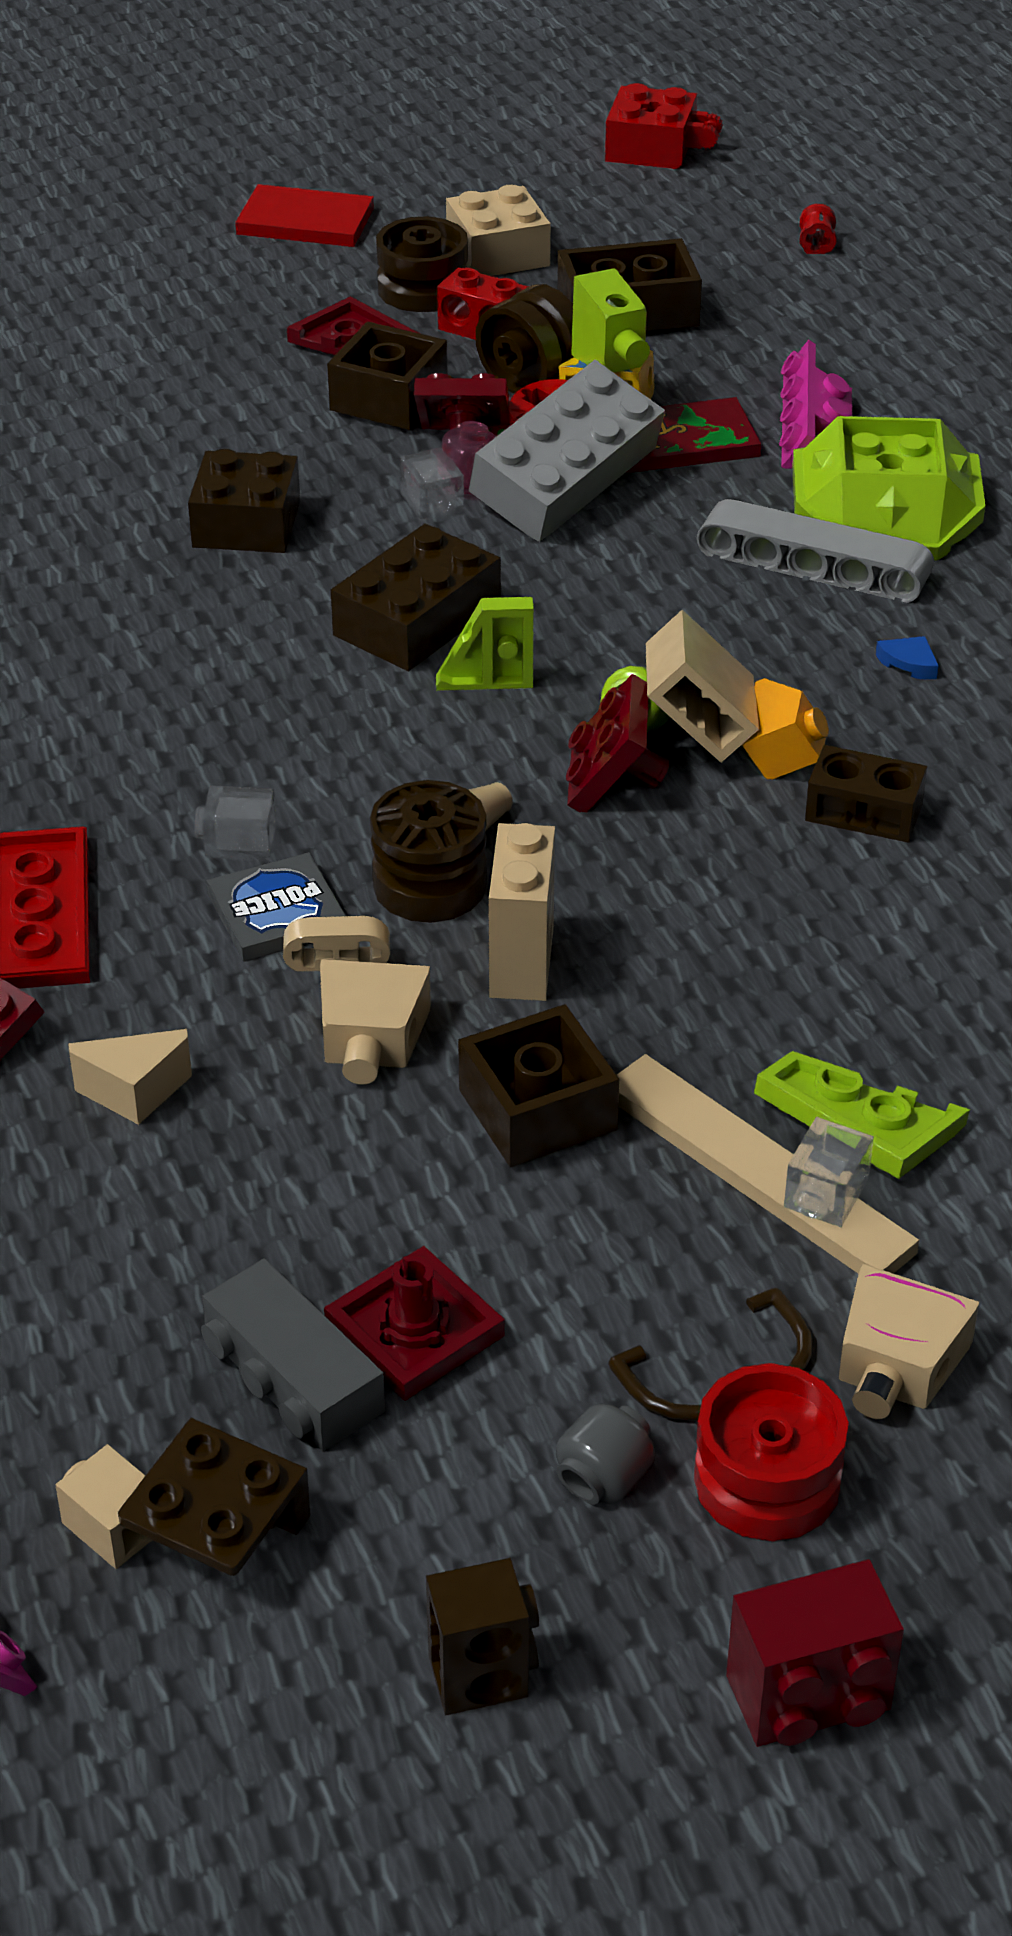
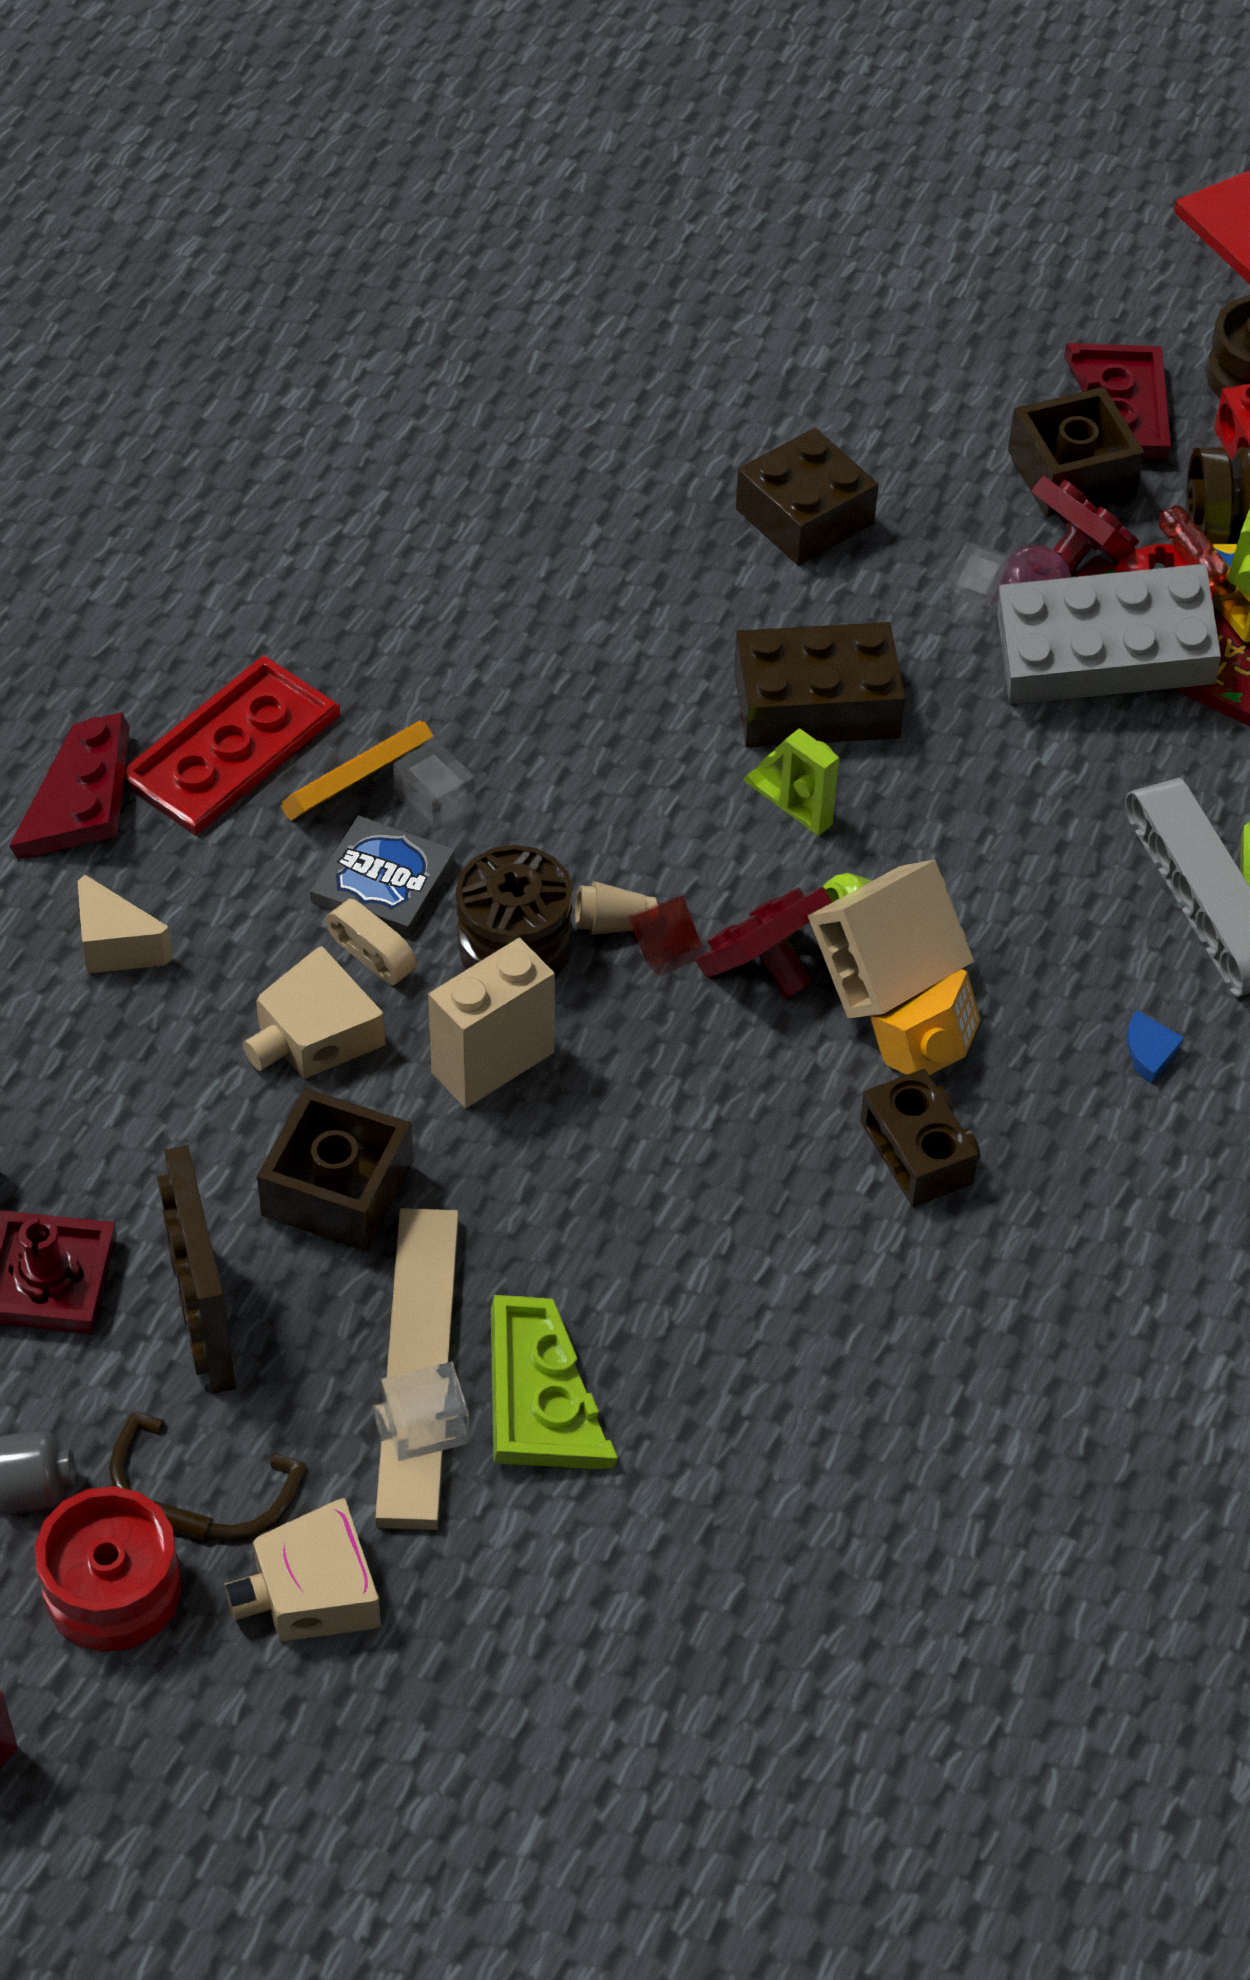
camera: 45 degrees right, 10 degrees up
(166, 853) = (356, 770): none -> light orange tile
(528, 796) = (665, 930): none -> clear red tile
(541, 369) = (1192, 543): none -> clear red axle
(566, 1198) = (195, 1270): none -> dark brown plate

